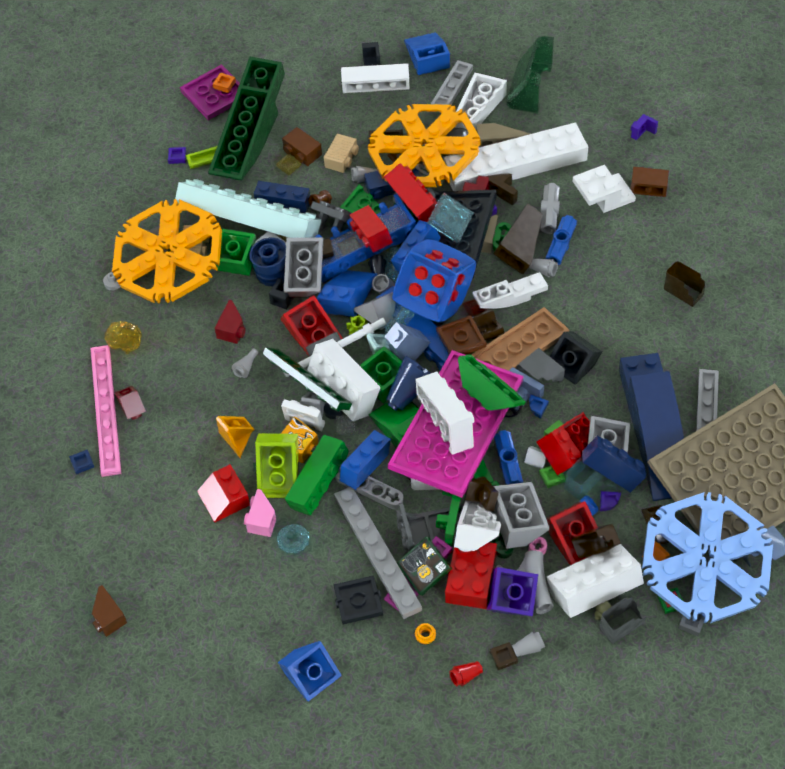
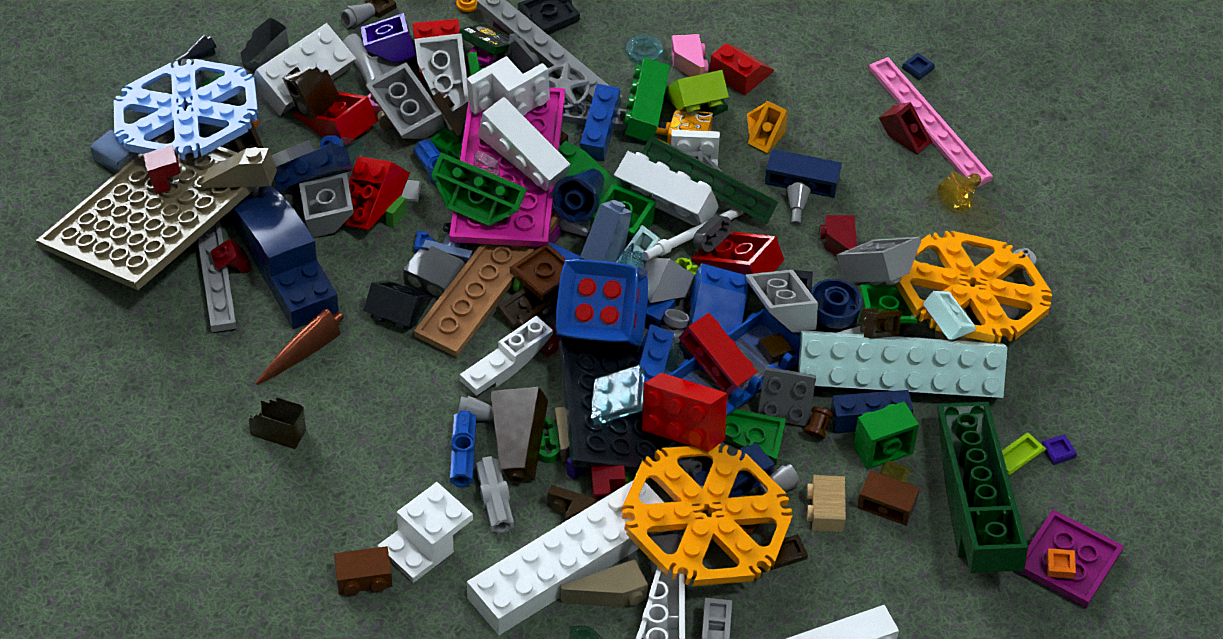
camera: 155 degrees right, 5 degrees down
(201, 213) = (948, 314): none -> light aqua slope
(220, 272) = (879, 261): none -> light grey slope
(228, 383) = (816, 173): none -> dark blue brick
(249, 222) = (880, 323): none -> dark brown slope
(284, 169) = (885, 435): none -> green brick
(378, 507) = (565, 82): none -> light grey wheel
(438, 453) = (506, 80): none -> white bracket
(477, 408) = (486, 163): none -> clear tile
(631, 484) = (292, 153): none -> light grey beam
(653, 344) = (305, 343): none -> copper piece
(677, 453) = (245, 169): none -> dark tan slope
(678, 645) = (201, 48): none -> black cone
(693, 419) = (230, 254): none -> dark red bracket
(738, 484) = (160, 166): none -> dark red piece

